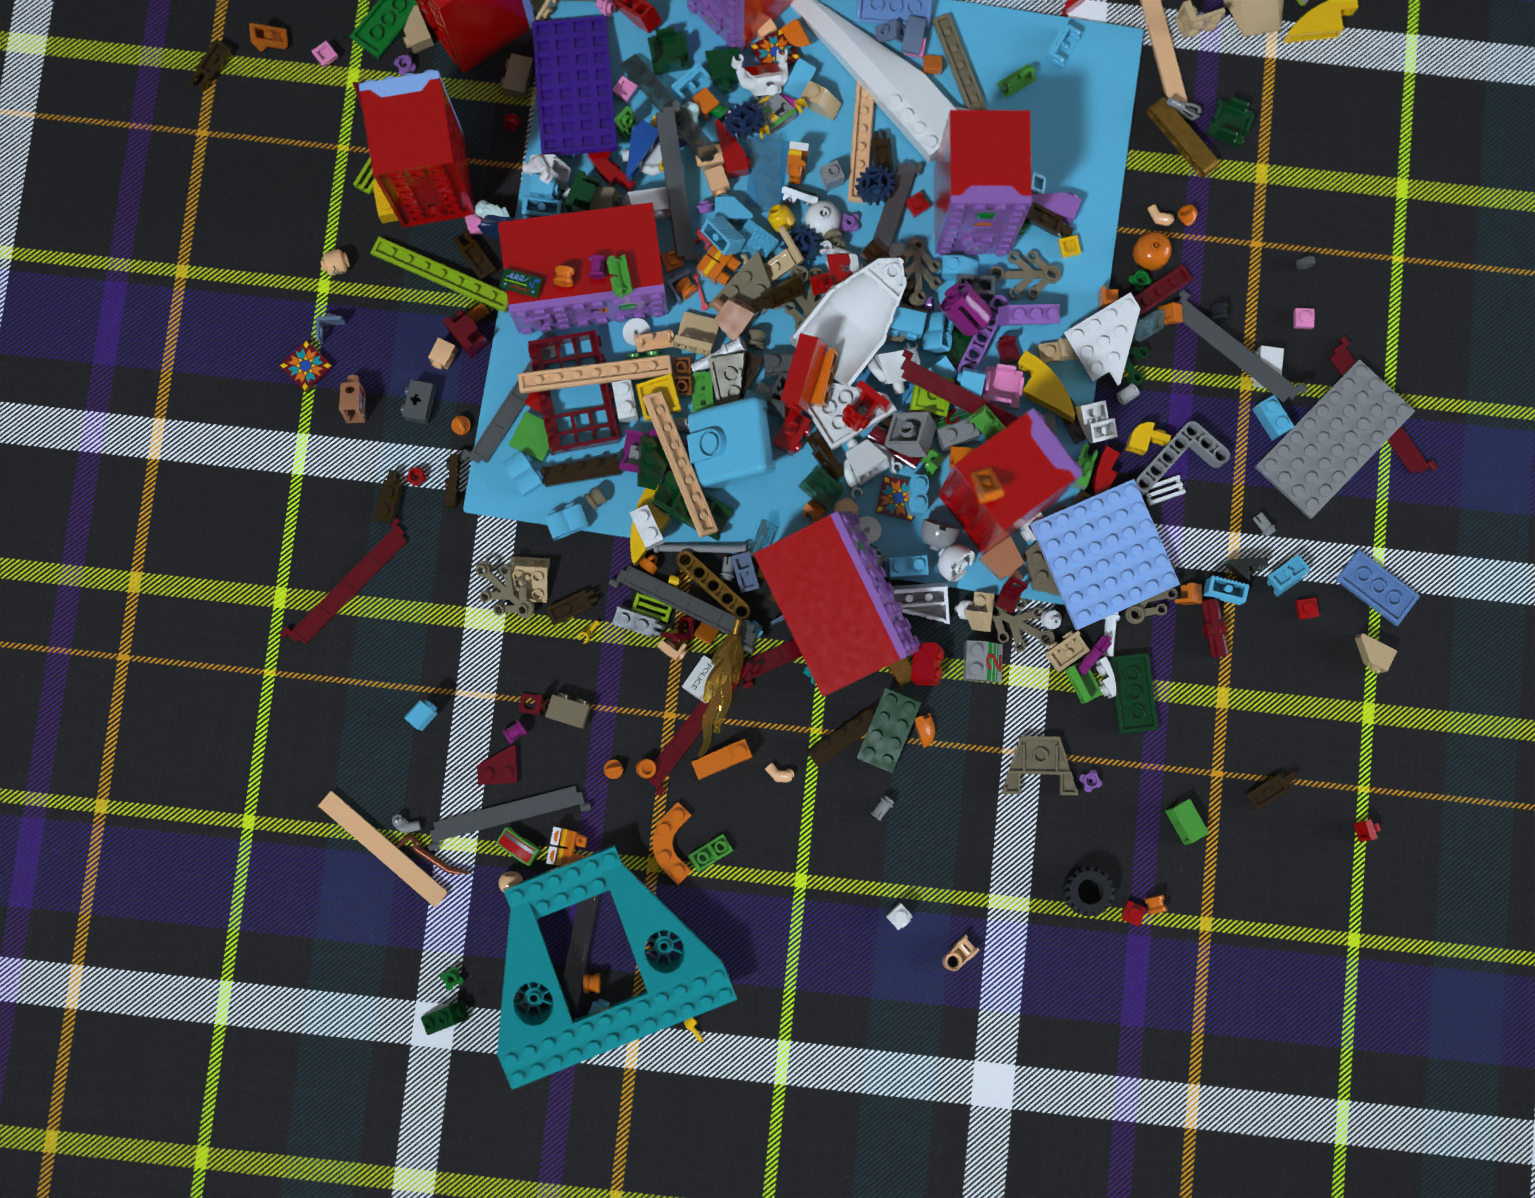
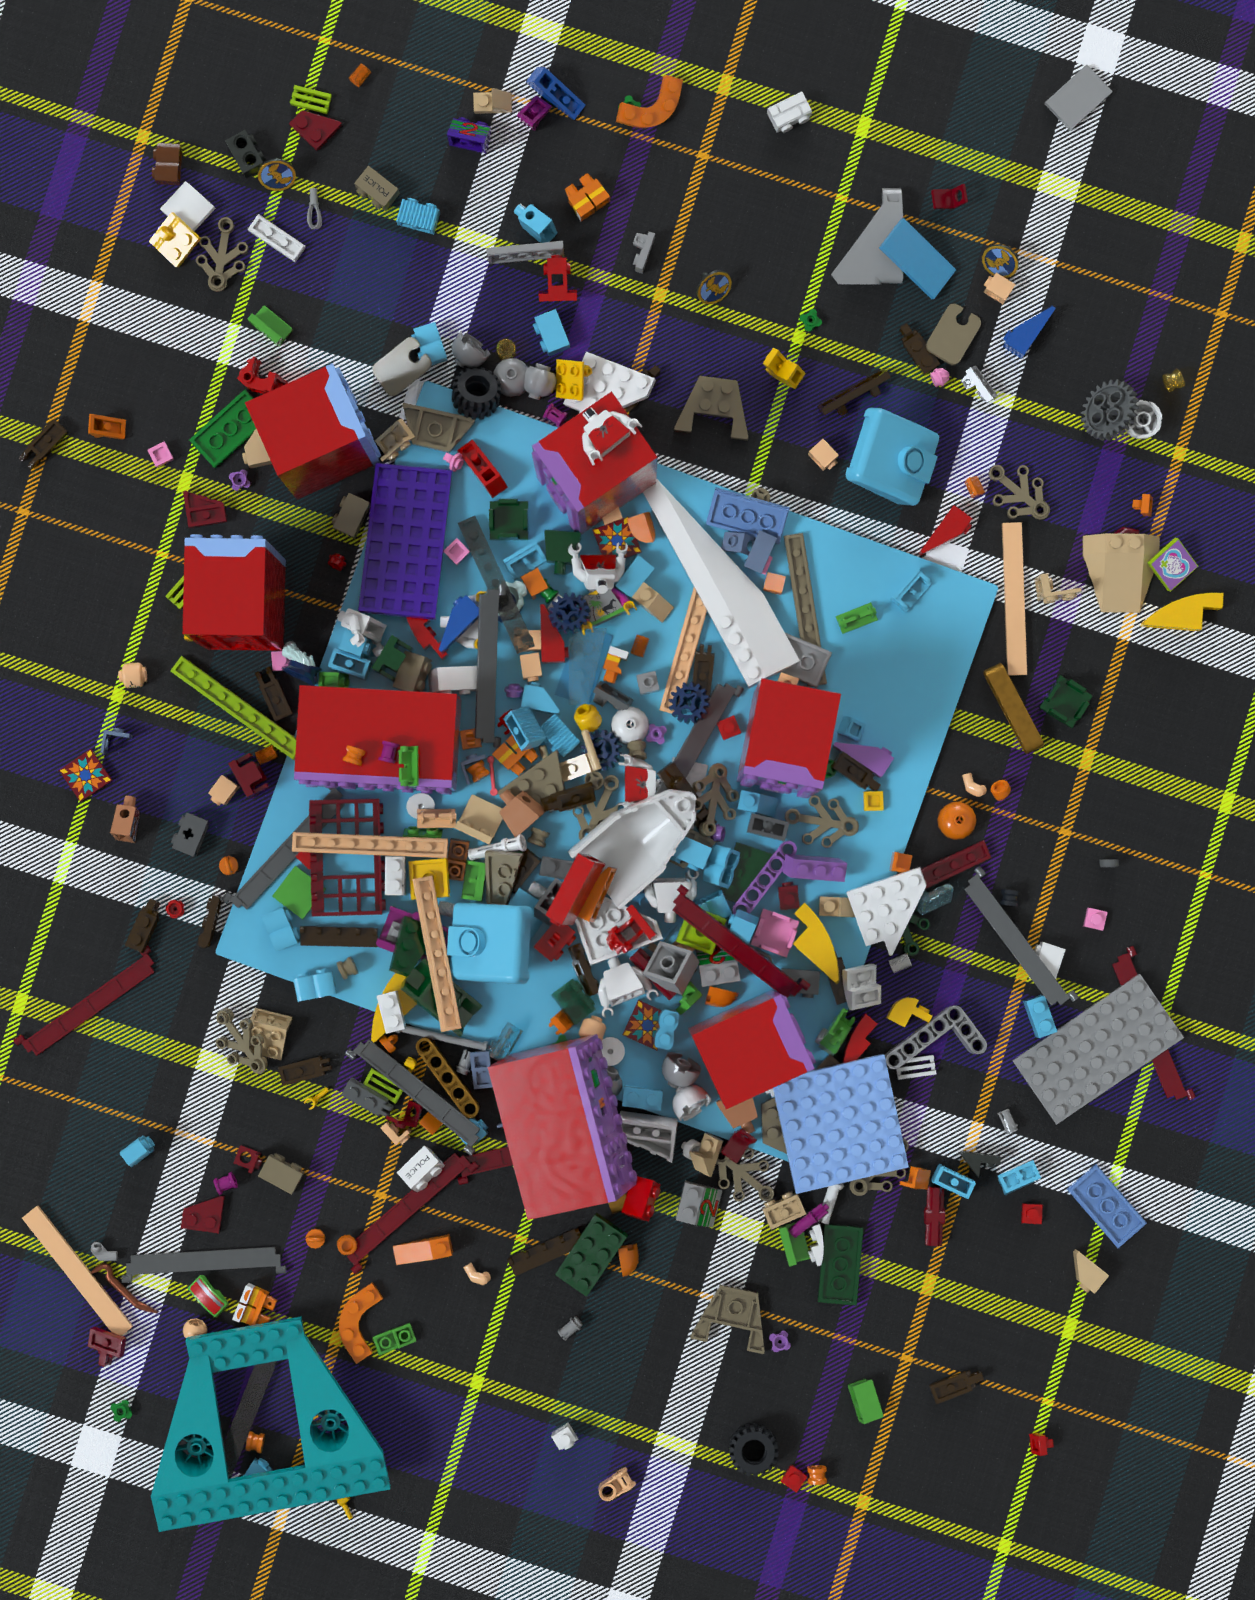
camera: 15 degrees right, 5 degrees up
(425, 914) = (108, 1345): none -> dark red hinge
(445, 1017) = (109, 1447): dark green bracket -> none
(521, 283) = (310, 753): dark green tile -> none
(625, 122) = (450, 591): bright green slope -> none
(726, 660) = (445, 1155): piece -> none
(816, 144) = (640, 645): none -> orange piece
(821, 283) = (613, 794): red tile -> none
(966, 309) = (751, 852): magenta cylinder -> none
(986, 422) = (751, 975): bright green hinge -> none
(986, 485) = (718, 1064): orange slope -> none
(1051, 619) = (774, 1175): white tile -> none
(1141, 274) = (933, 847): green plate -> none
(1172, 313) = (962, 889): orange slope -> none
(1180, 106) = (1016, 677): light grey piece -> none

